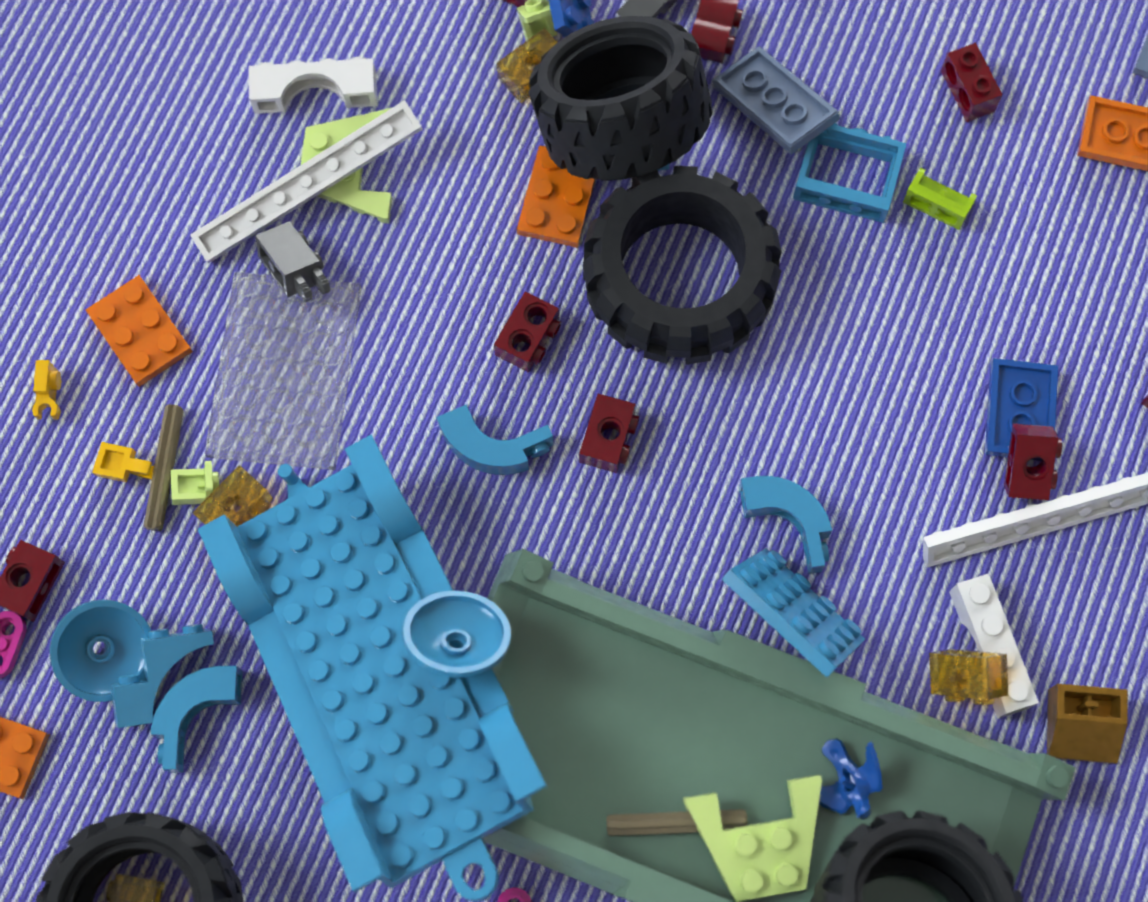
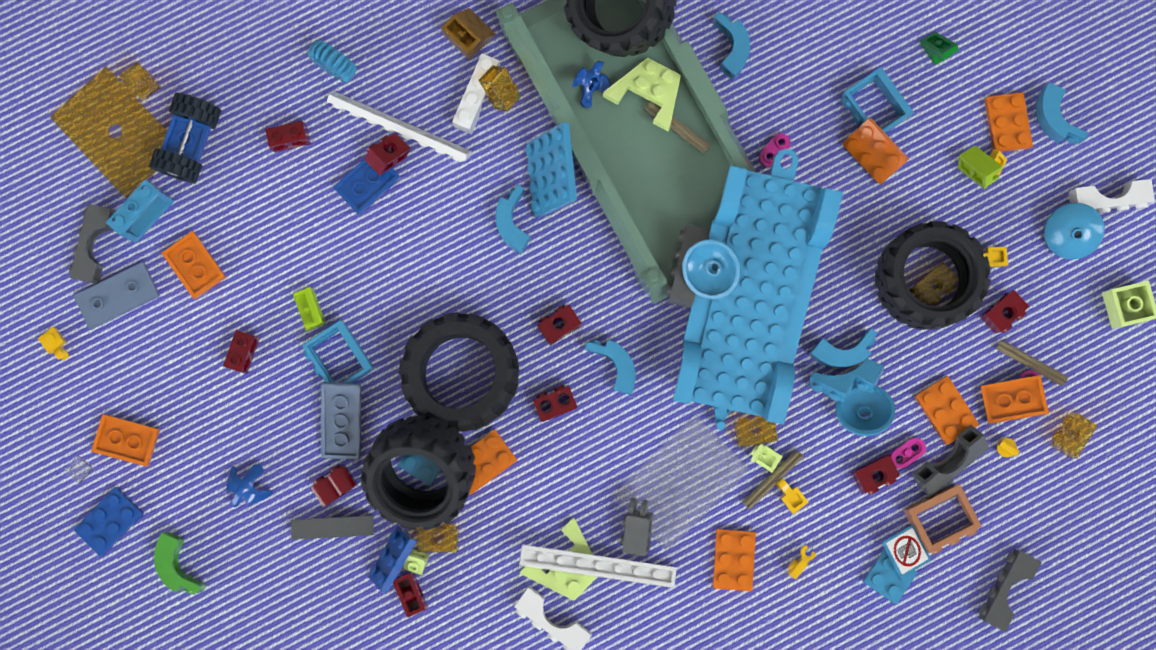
camera: 140 degrees left, 10 degrees up
(519, 671) = (679, 291): none -> dark grey arch

